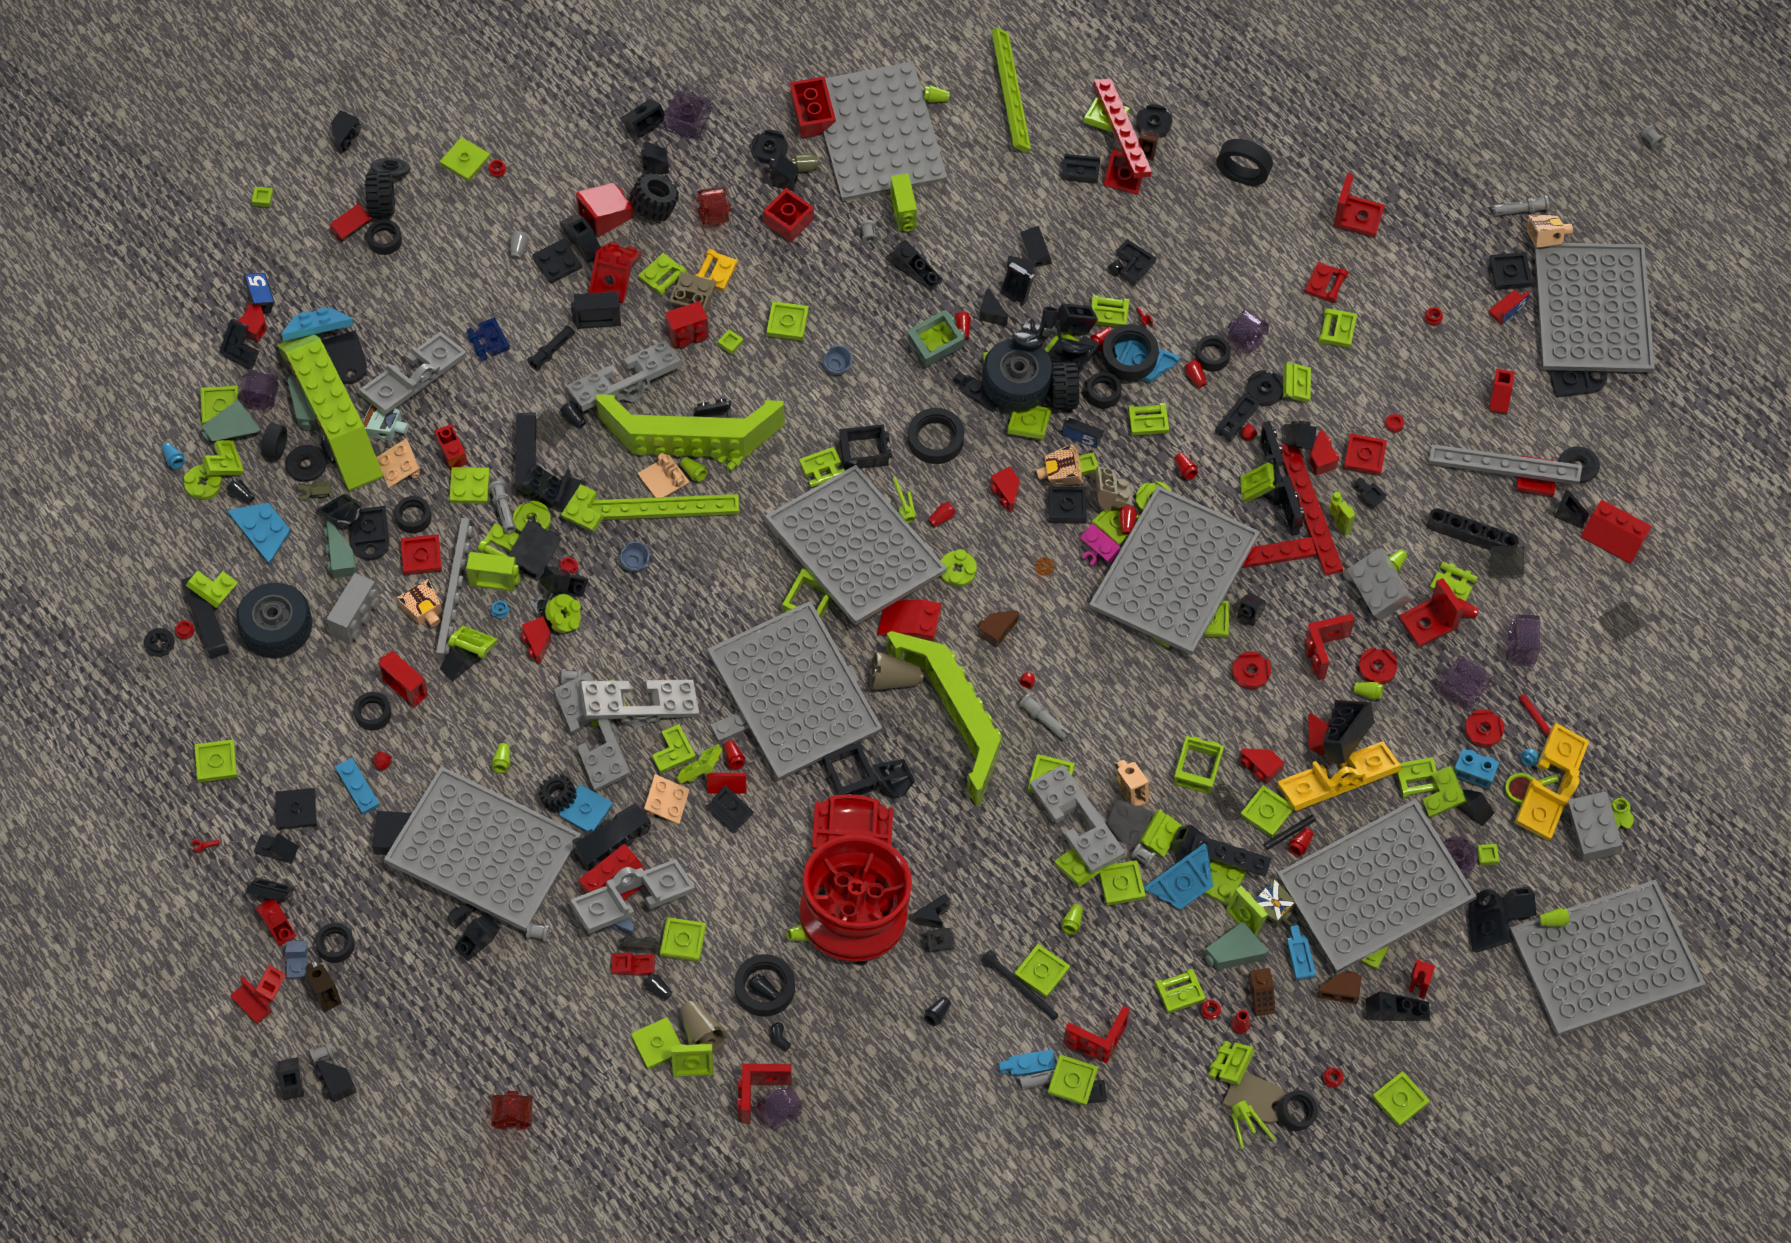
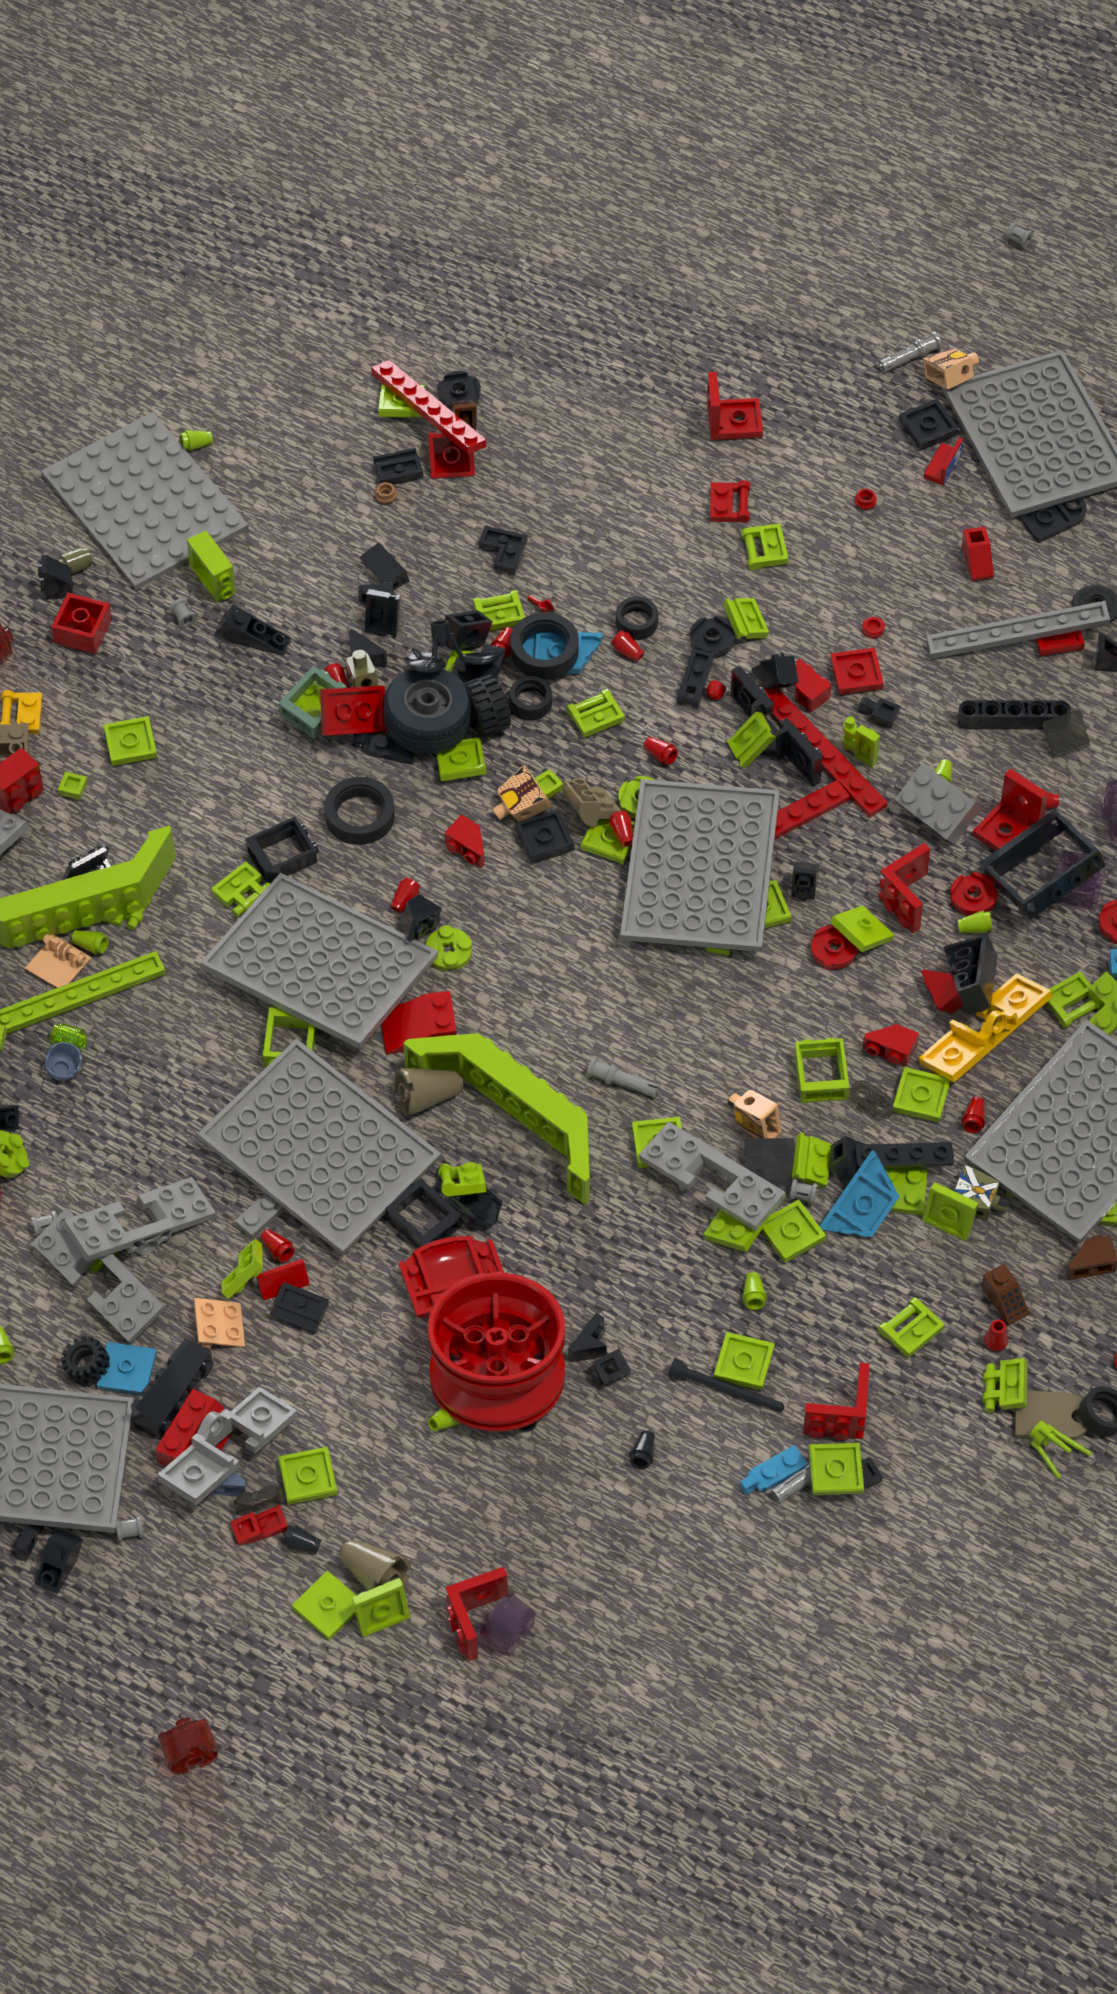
camera: 20 degrees left, 5 degrees down
(647, 537) = (69, 1034): none -> clear neon green brick
(678, 750) = (208, 1267): lime plate -> none
(757, 963) = (421, 1465): black tyre -> none
(763, 987) = (427, 1496): black cone -> none
(772, 137) = (19, 547): black plate -> none
(777, 1036) = (467, 1547): black arm -> none
(812, 106) = (57, 495): red slope -> none
(837, 360) = (208, 760): sand blue hair -> none
(896, 756) = (469, 1175): none -> lime plate
(906, 511) = (361, 903): lime plant -> none
(944, 536) = (420, 917): none -> black slope
(960, 354) = (352, 710): none -> red plate
(980, 324) = (360, 668): none -> olive torso
(997, 626) = (523, 996): reddish brown slope -> none
(1011, 90) = (278, 404): lime plate -> none
(1027, 680) = (584, 1045): red hinge -> none
(1044, 566) = (548, 912): clear orange plate -> none
(1062, 182) = (385, 488): none -> medium nougat plate
(1082, 432) = (526, 752): panel -> none
(1100, 545) = (603, 867): dark pink brick -> none
(1115, 267) = (485, 561): black hinge -> none
(1210, 1004) = (958, 1330): red plate -> none
(1235, 949) = (954, 1258): sand green slope -> none
(1247, 331) = (666, 580): clear purple brick -> none
(1250, 151) = (584, 382): black tyre -> none
(1278, 663) = (862, 928): none -> lime plate
(1289, 832) = (956, 1109): black bar -> none
(1300, 955) = (1029, 1239): dark azure hinge -> none
(1433, 641) = (1029, 842): none -> black window
(1460, 588) = (1007, 763): lime plate -> none

